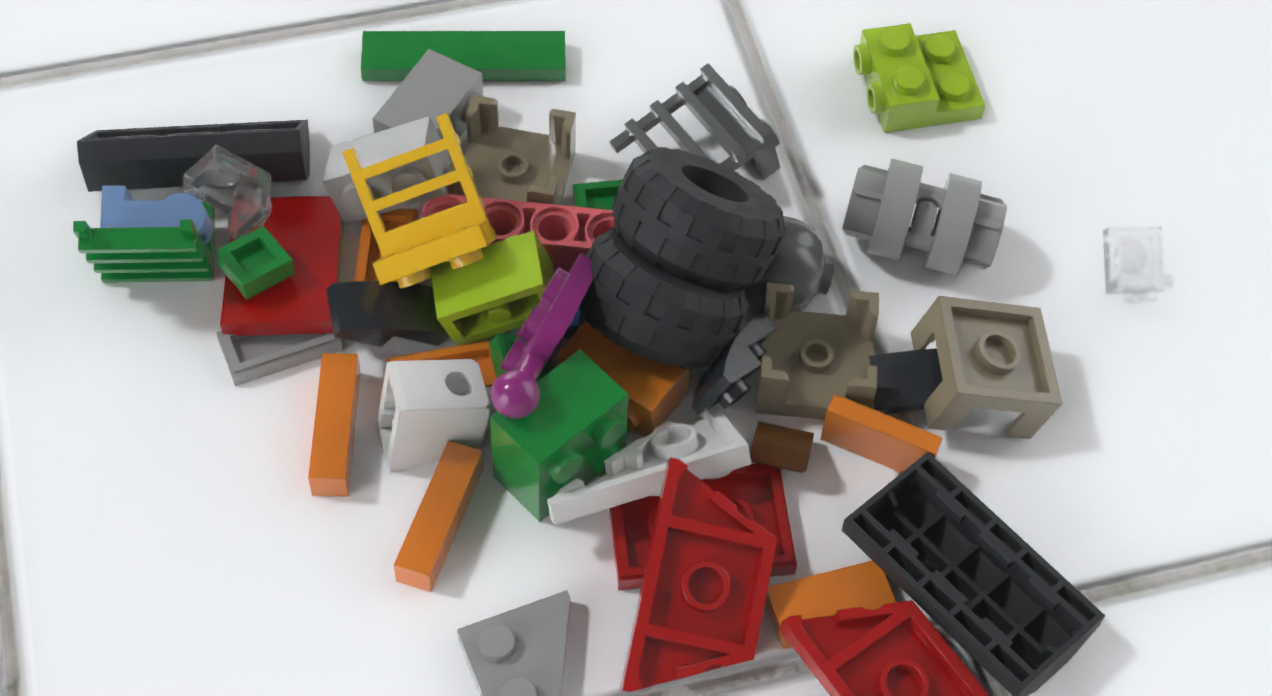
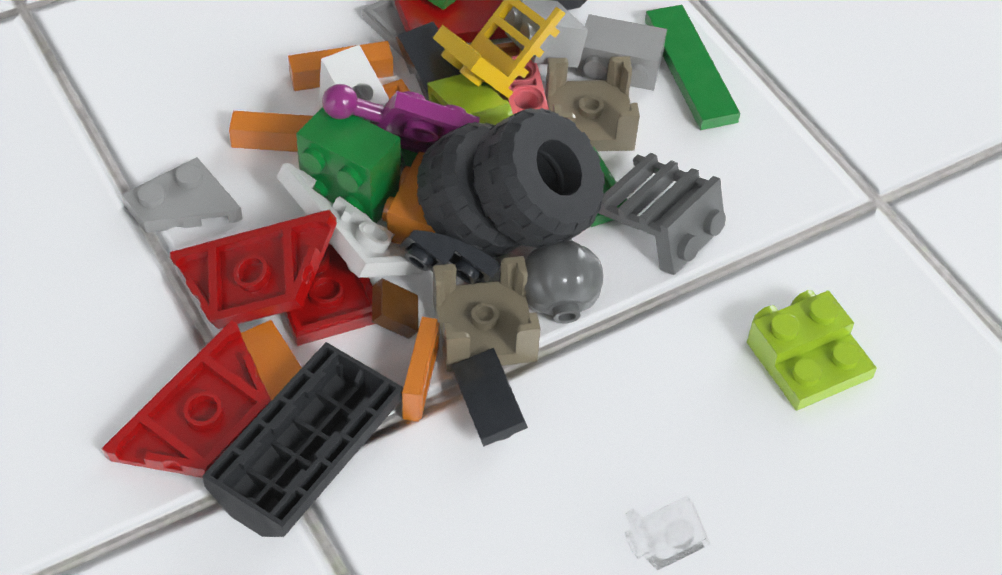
camera: 75 degrees right, 5 degrees down
(963, 230) = (641, 359): light grey piece -> none
(989, 360) = (503, 417): dark tan panel -> none

